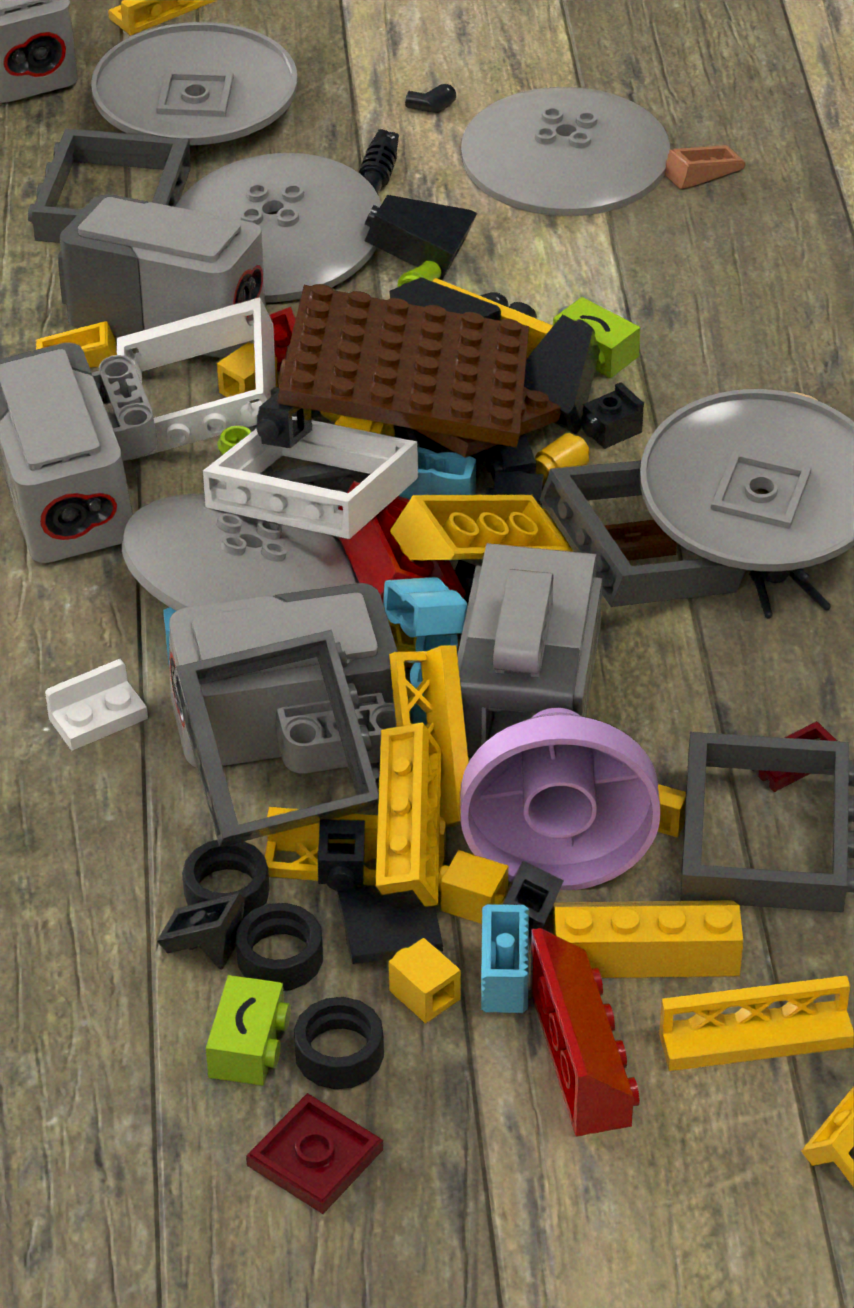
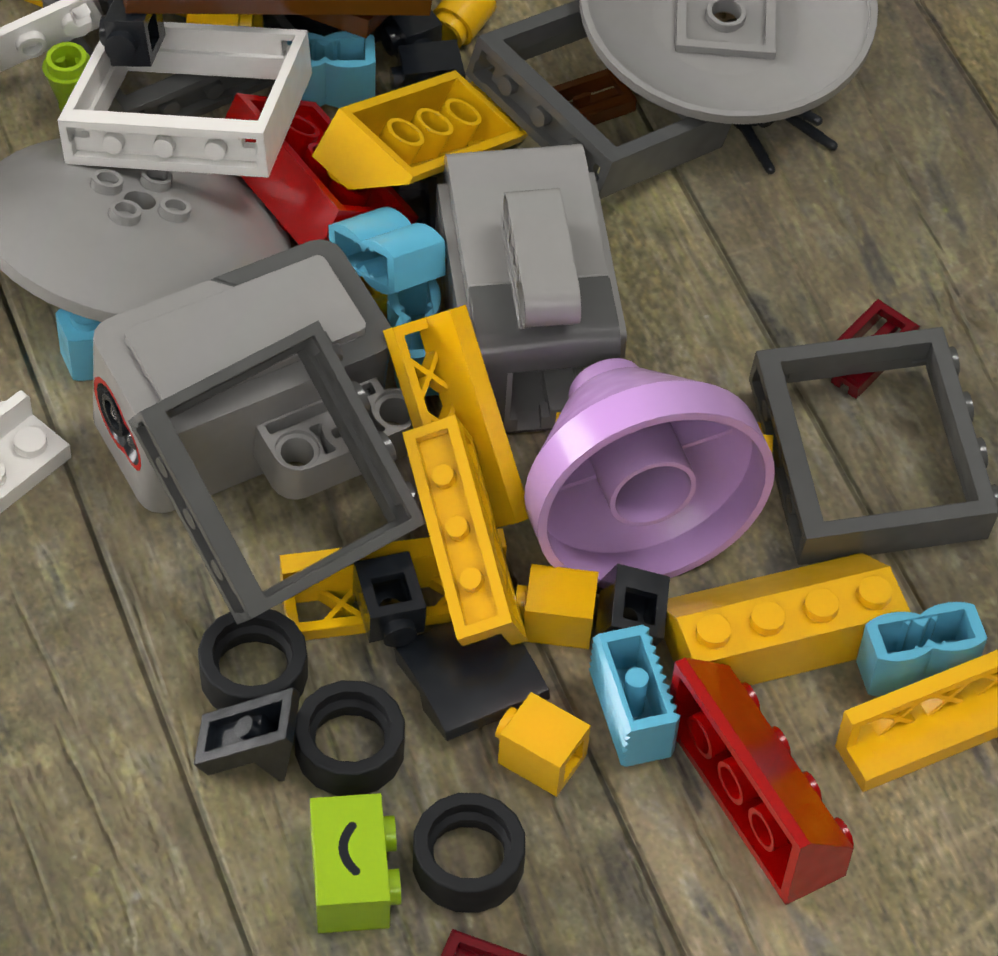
camera: 20 degrees left, 10 degrees up
(739, 964) = (914, 646): none -> medium azure brick

